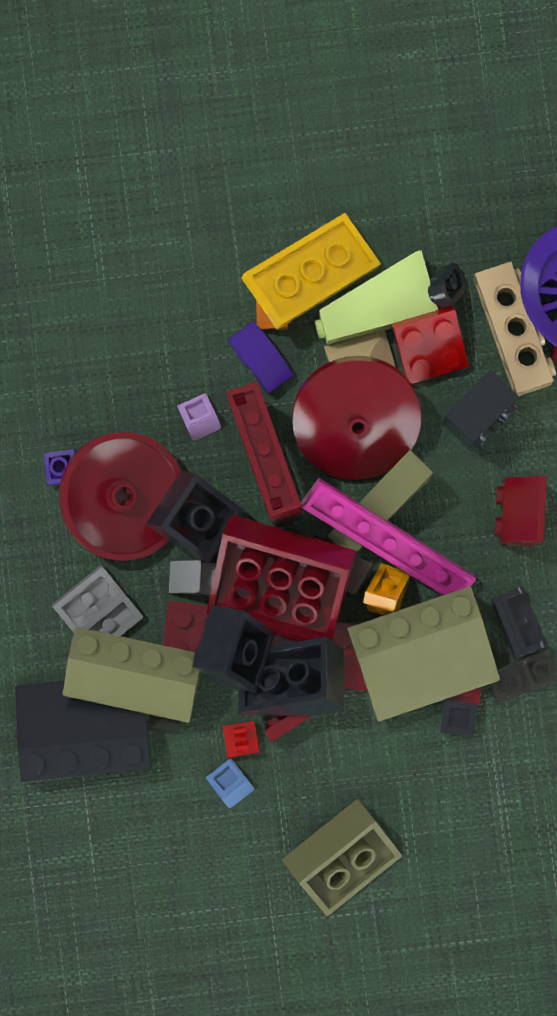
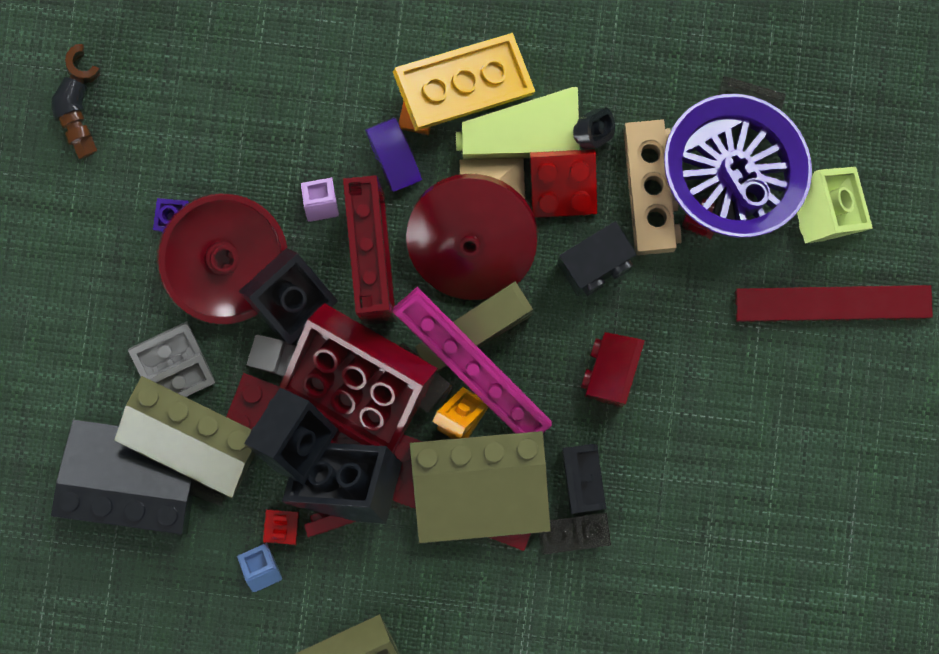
camera: 15 degrees right, 0 degrees up
(458, 718) = (500, 558): black plate -> none

